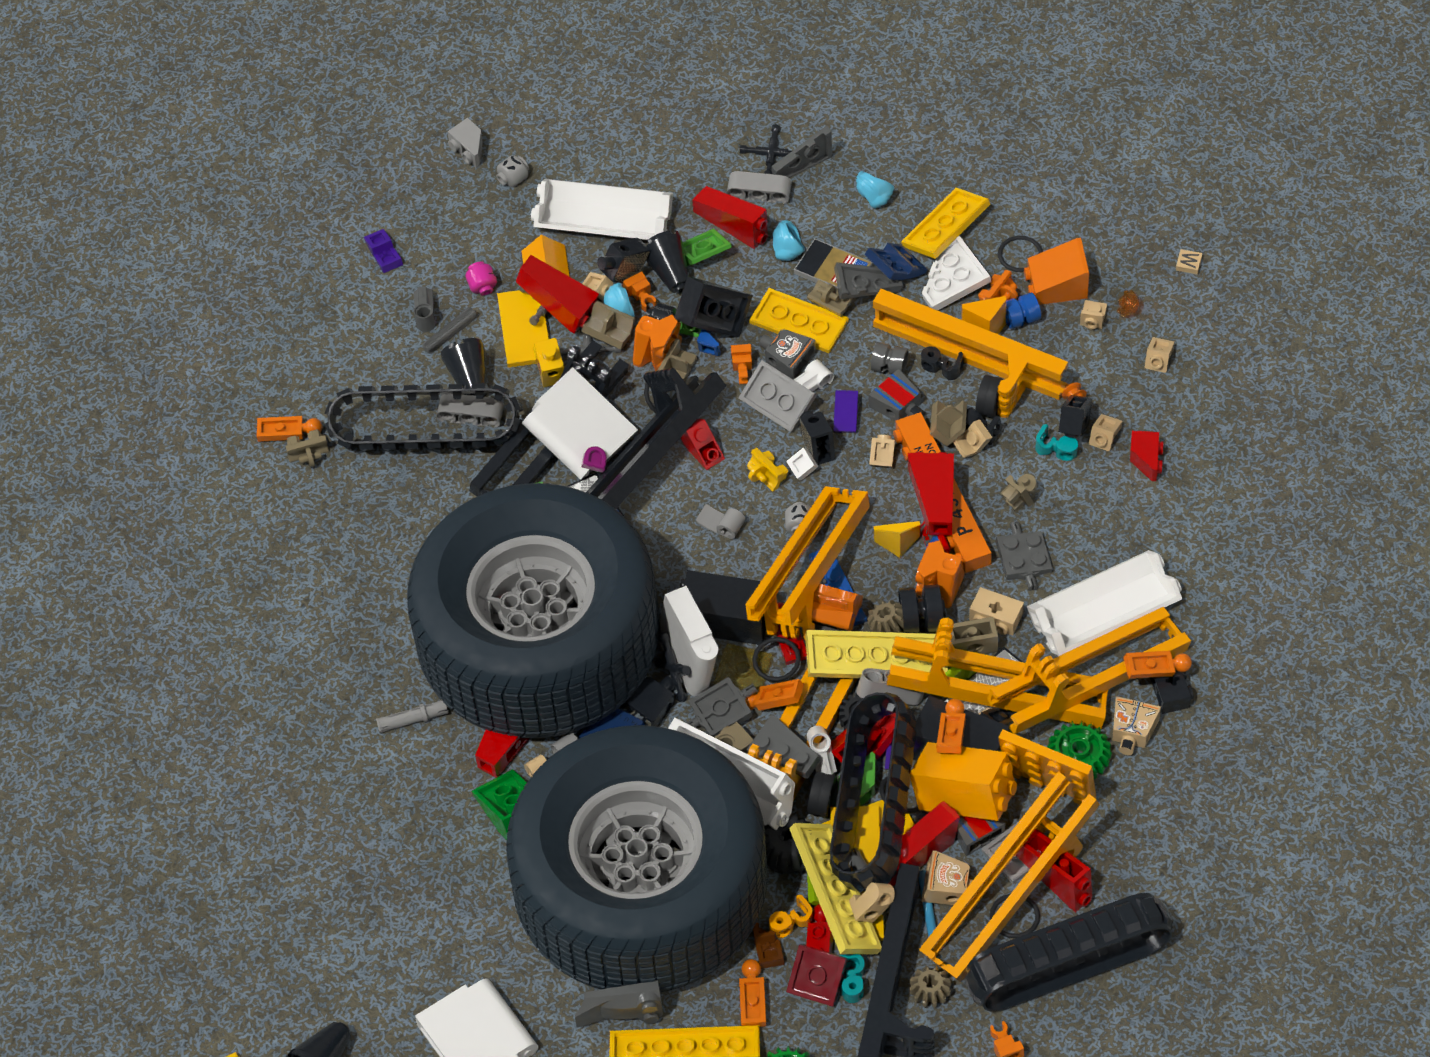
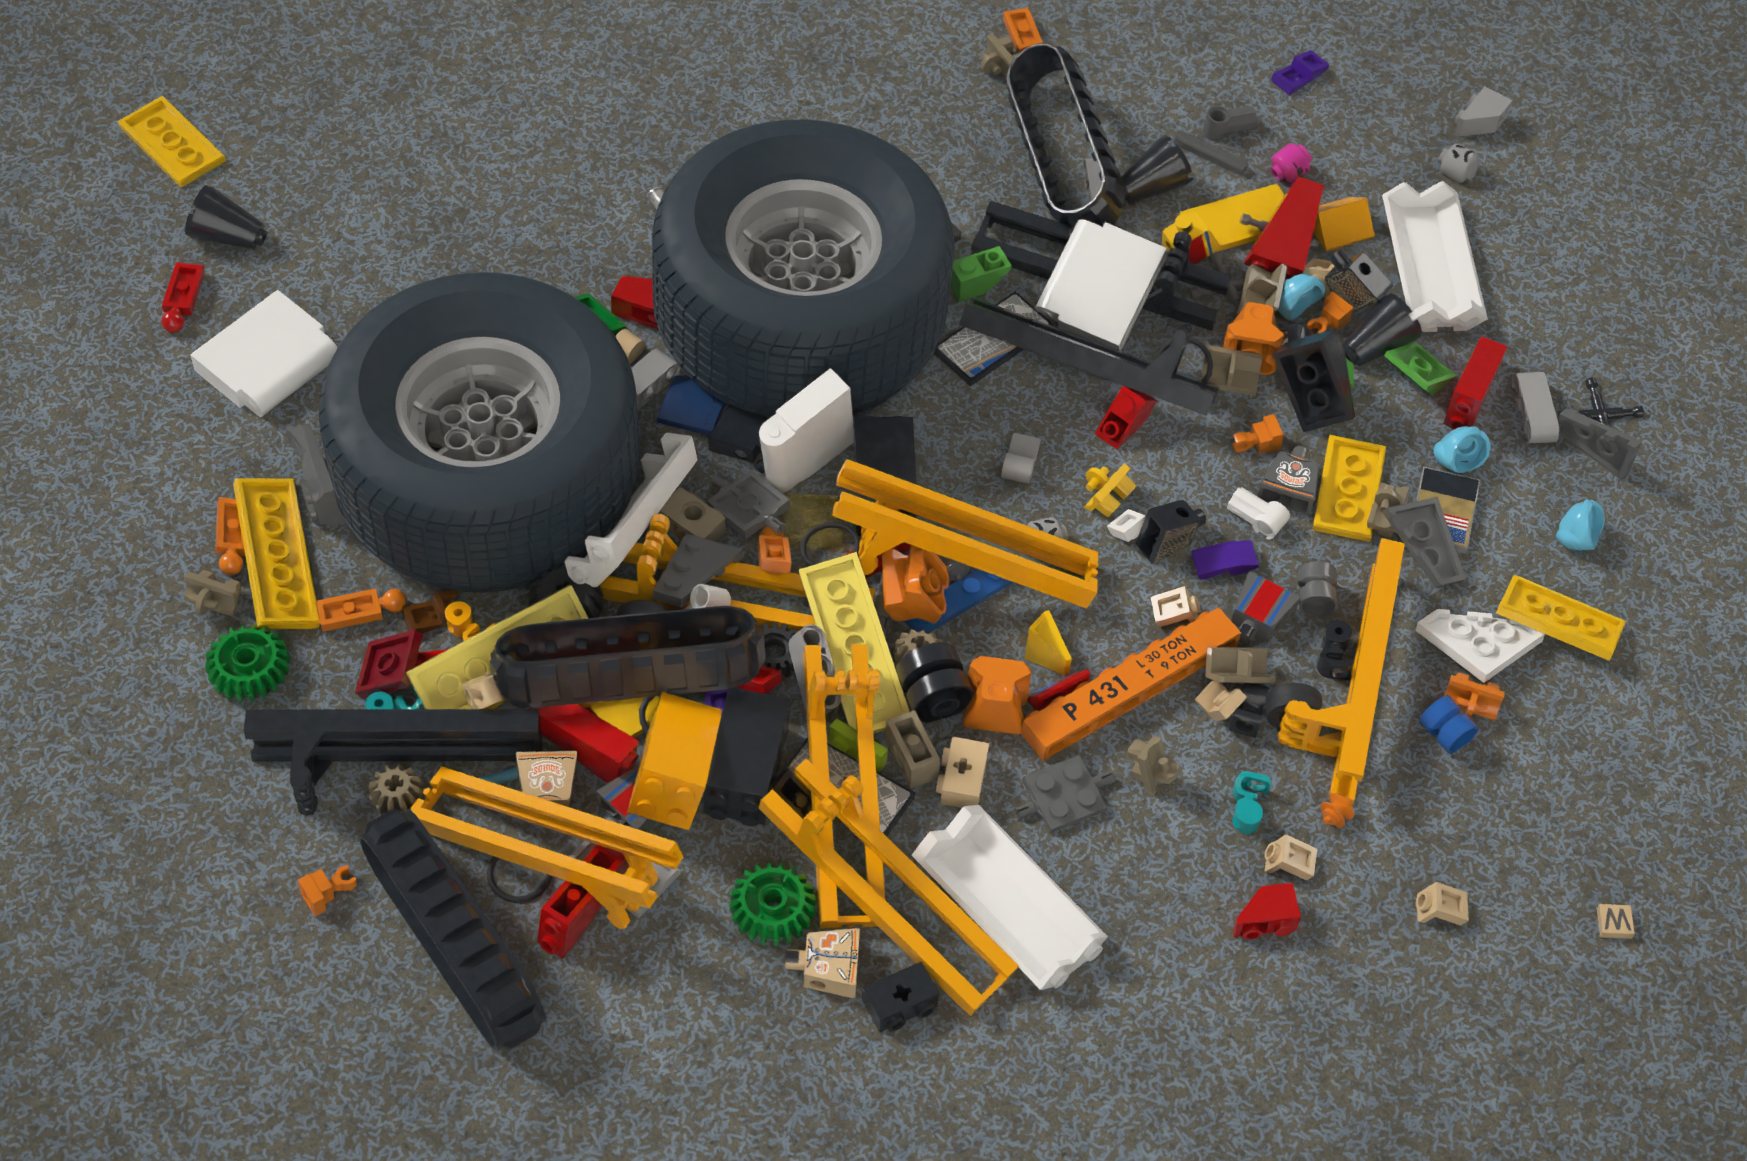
camera: 70 degrees right, 0 degrees up
(594, 459) = (1057, 306): magenta tile -> none
(708, 344) = (1276, 396): blue slope -> none
(777, 396) = (1220, 478): light grey tile -> none
(896, 262) = (1473, 571): dark blue slope -> none
(933, 484) = (1116, 661): red slope -> none
(951, 728) = (737, 725): orange plate -> none
(987, 313) = (1415, 681): light orange slope -> none
(1013, 239) = (1569, 700): black piece -> none
(1042, 764) = (711, 851): light orange plate -> none
(1059, 273) = (1523, 758): orange slope -> none
(1075, 415) = (1293, 809): black brick -> none
(1093, 314) = (1479, 815): tan bracket -> none
(1128, 303) = (1510, 854): clear orange plate -> none
(1155, 664) = (912, 962): orange plate -> none

